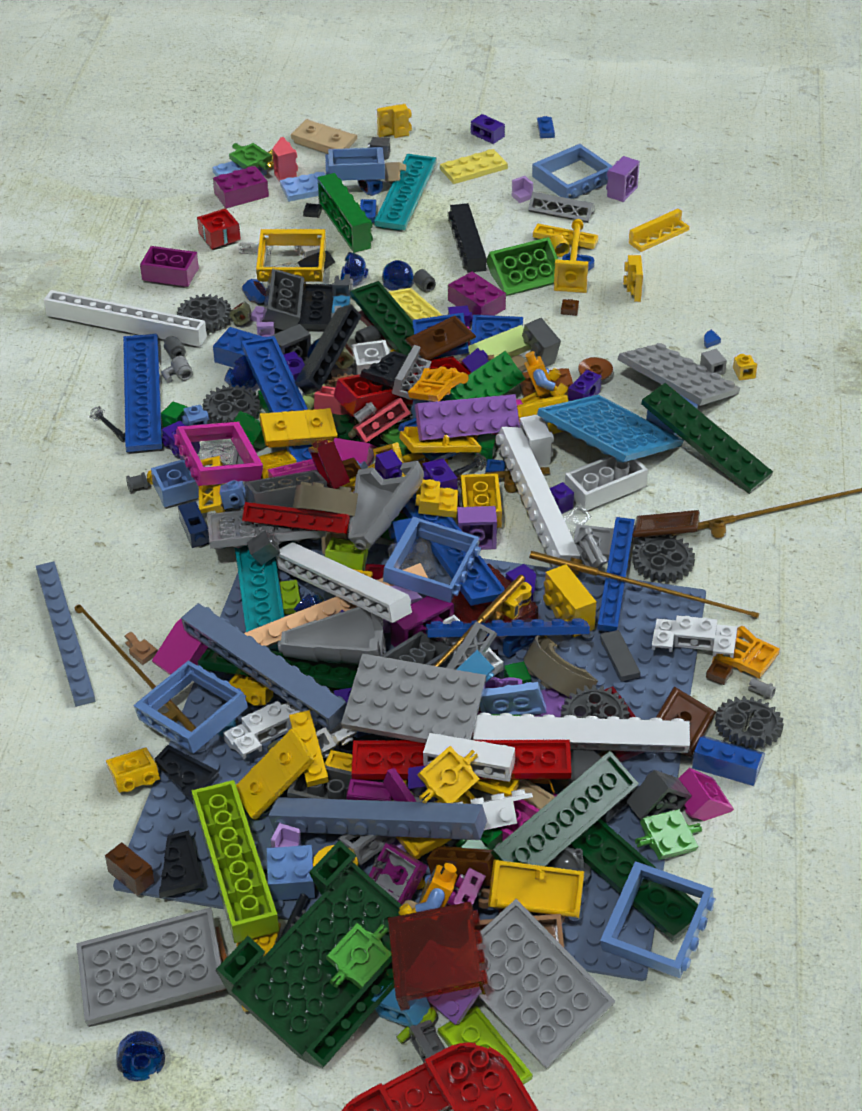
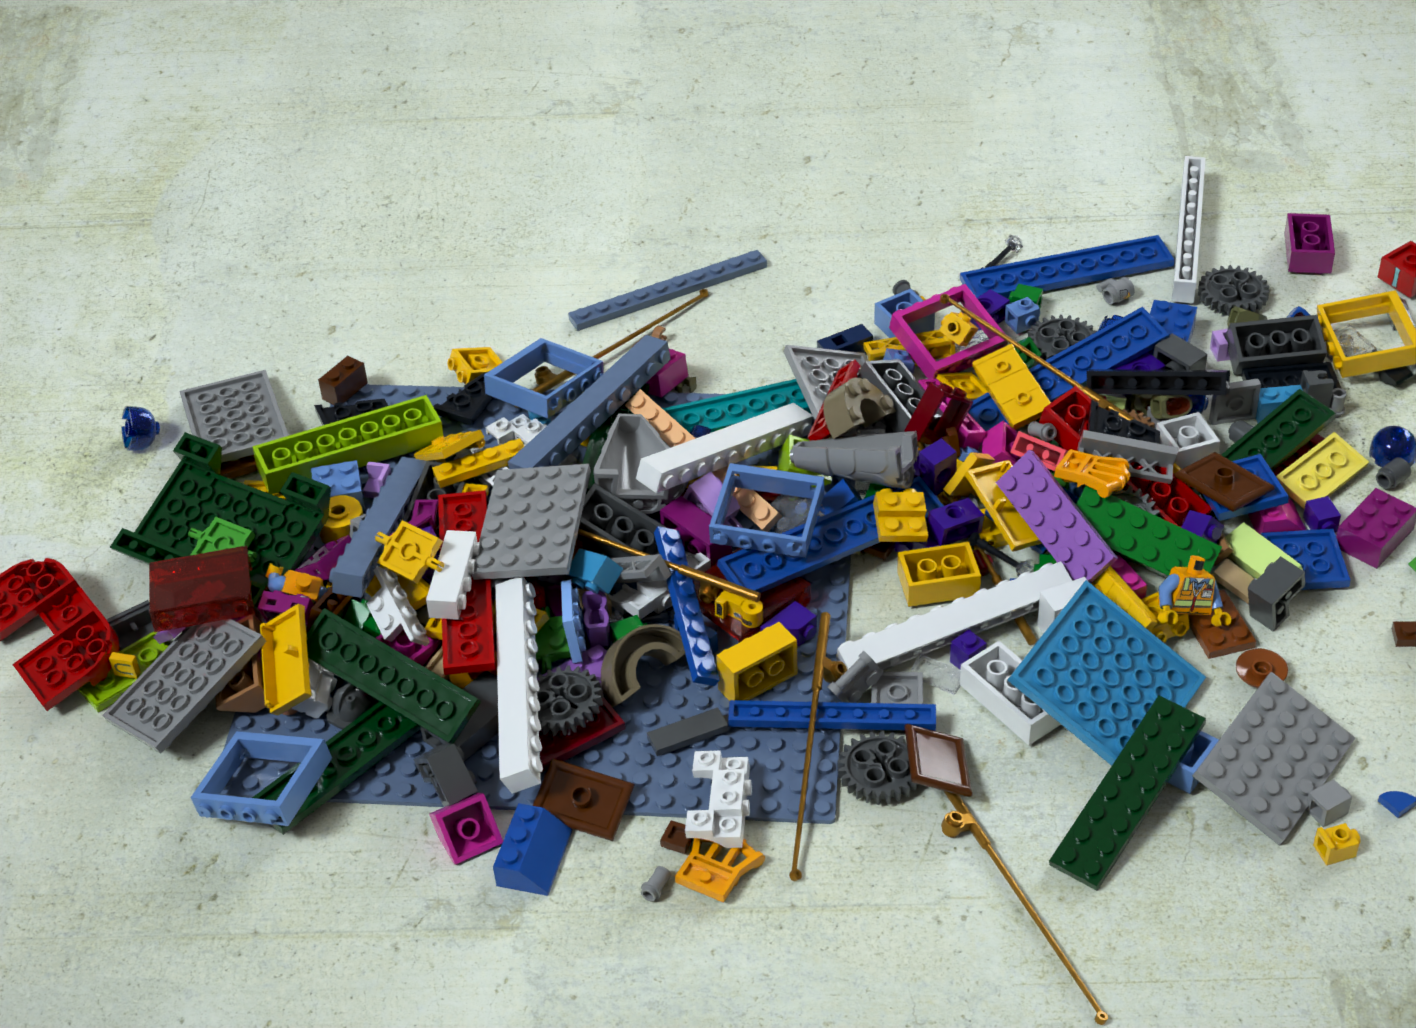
camera: 85 degrees right, 0 degrees up
(174, 347) = (1154, 278): dark grey brick -> none
(233, 437) = (958, 328): none -> yellow brick
(264, 547) = (790, 389): flat silver brick -> none
(323, 387) = (1103, 403): none -> pearl gold piece
(355, 266) = (1378, 399): clear blue cylinder -> none
(479, 522) = (882, 572): medium lavender brick -> none
(495, 1038) = (124, 665): none -> yellow tile
(585, 386) = (1209, 657): dark purple brick -> none
(668, 834) = (402, 795): plate -> none
(763, 726) = (590, 869): dark grey gear -> none

